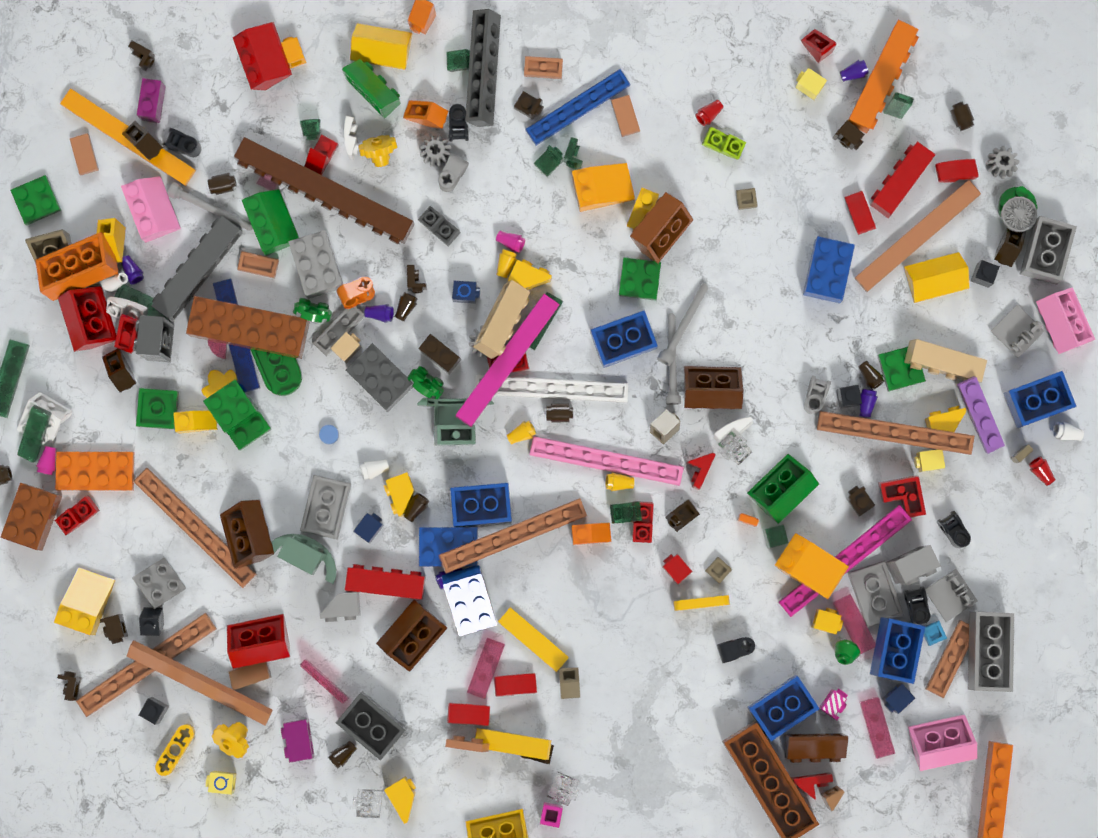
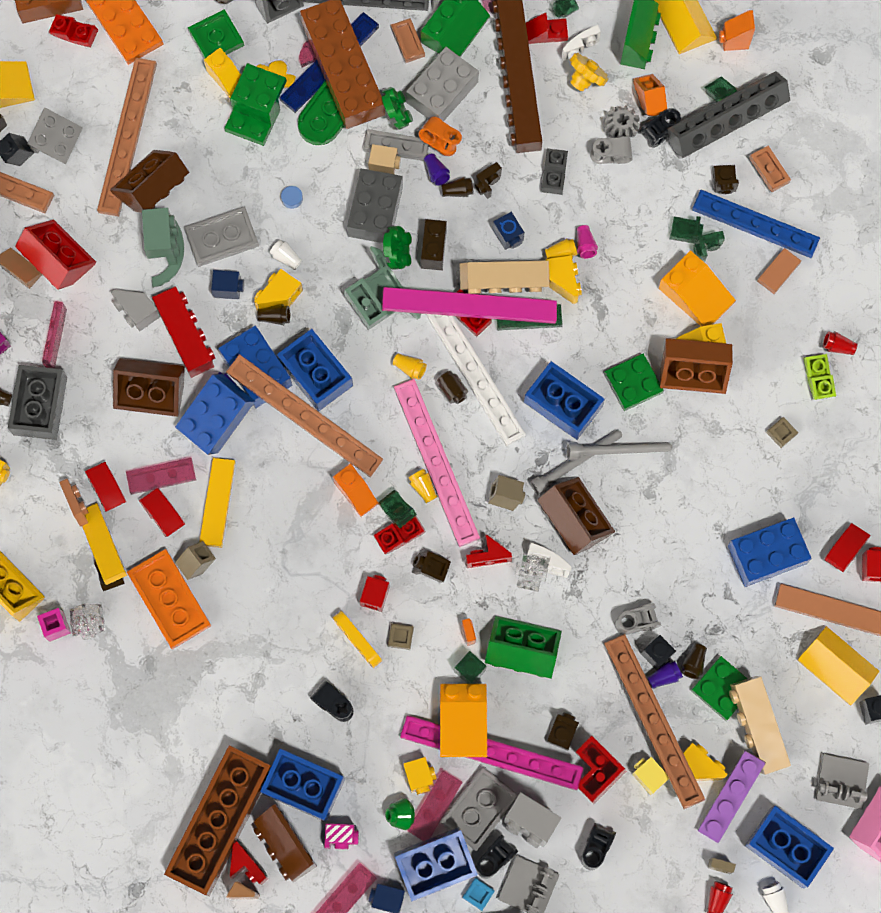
camera: 55 degrees right, 10 degrees down
(584, 719) = (168, 599): none -> orange plate

